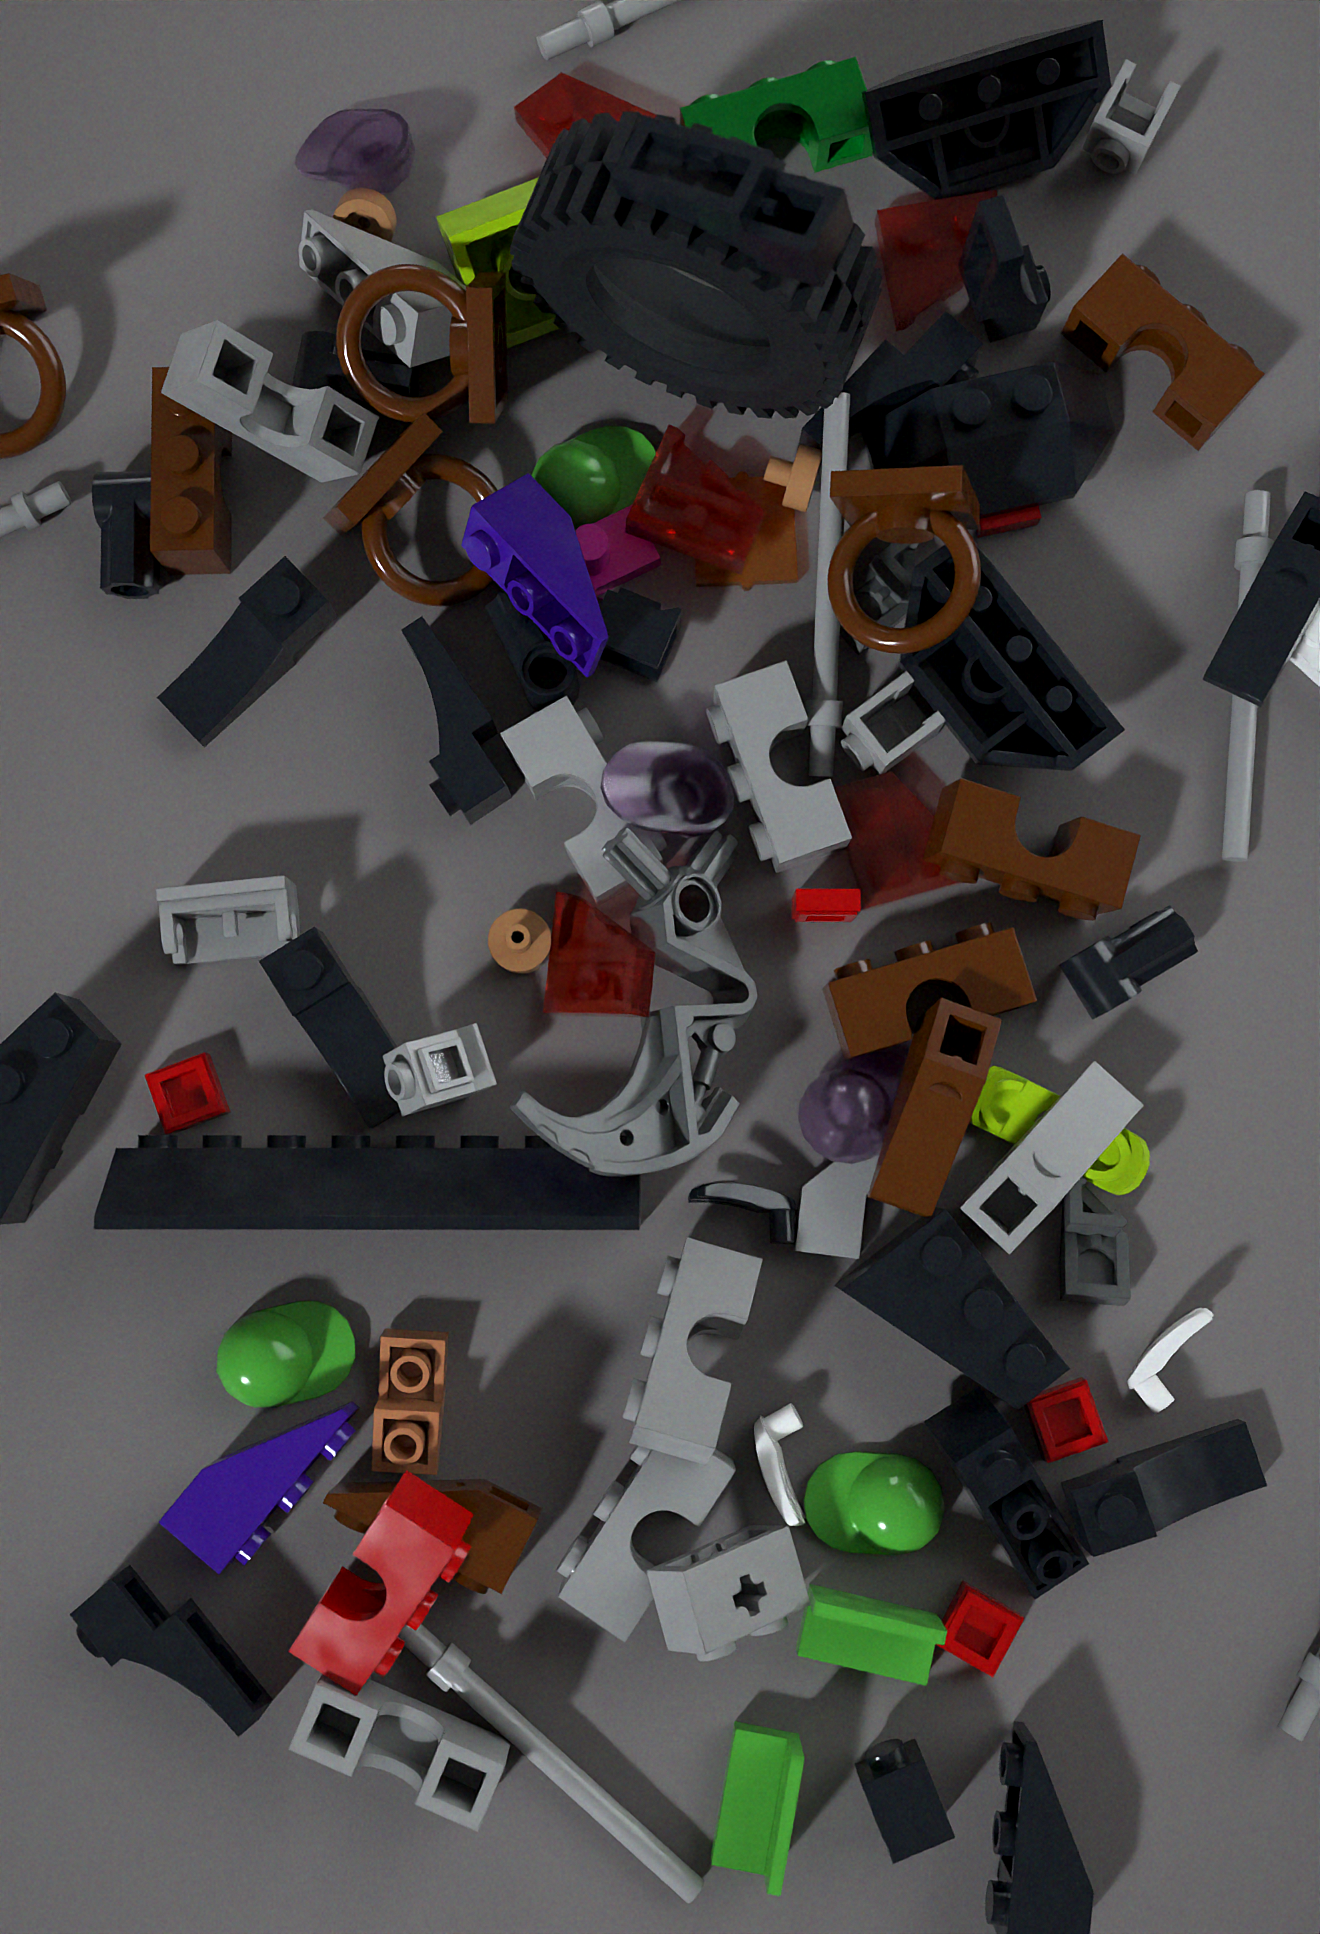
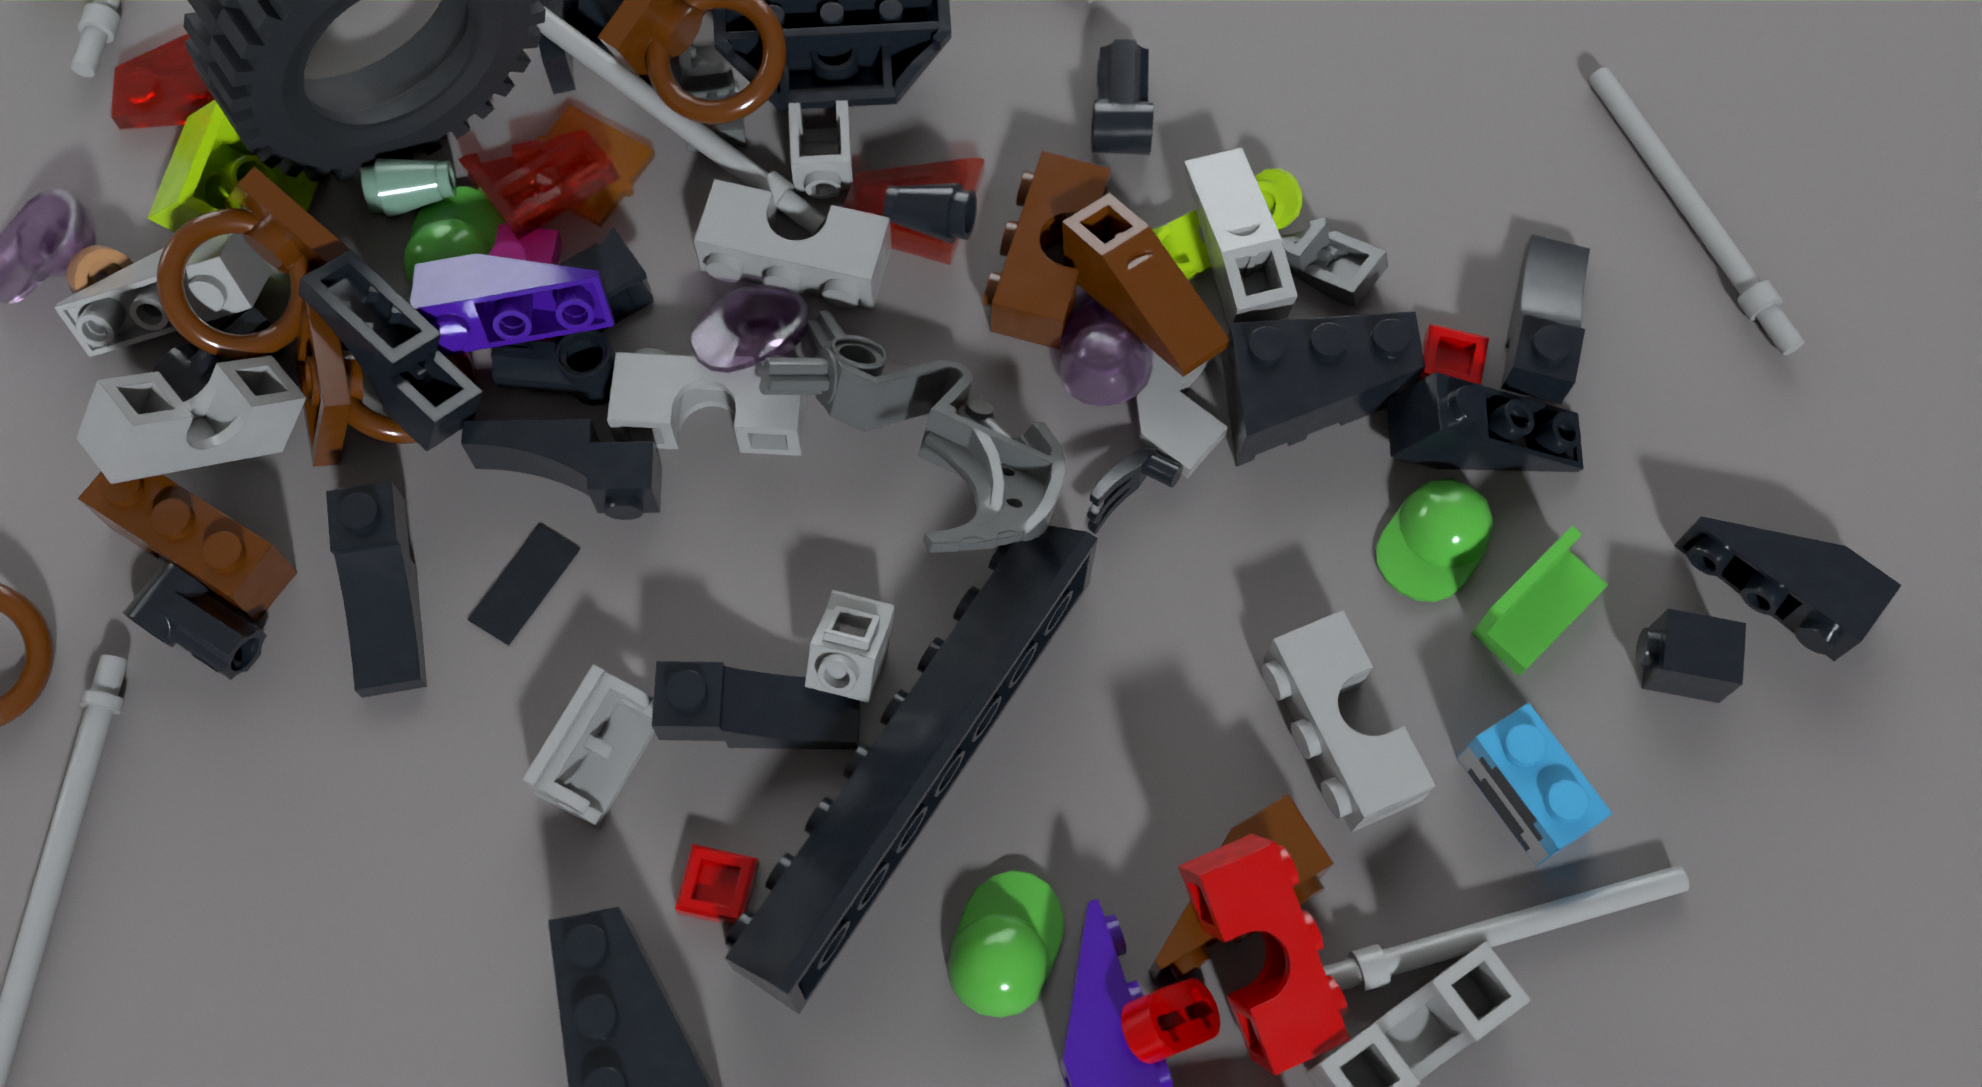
camera: 60 degrees left, 15 degrees down
(288, 1535) = (1170, 1020): none -> red beam
(336, 760) = (523, 584): none -> black sticker
(410, 1401) = (1115, 858): nougat slope -> none
(432, 514) = (393, 348): none -> black slope
(523, 956) = (787, 528): medium nougat tile -> none
(595, 964) = (853, 470): clear red wing -> none
(613, 399) = (406, 184): none -> sand green cone
(678, 1405) = (1254, 612): light grey arch -> none
(687, 1727) = (1533, 784): none -> dark azure brick
(728, 1591) = (1441, 677): light grey brick -> none
(758, 1803) = (1640, 773): bright green panel -> none
(770, 1456) = (1354, 593): white piece -> none
(796, 476) = (576, 91): medium nougat tile -> none
(826, 905) = (926, 278): red tile -> none
(885, 870) = (933, 210): none -> black cone
(978, 839) = (958, 136): reddish brown arch -> none
(979, 1628) = (1590, 514): red tile -> none
(1143, 1375) = (1442, 262): white piece -> none

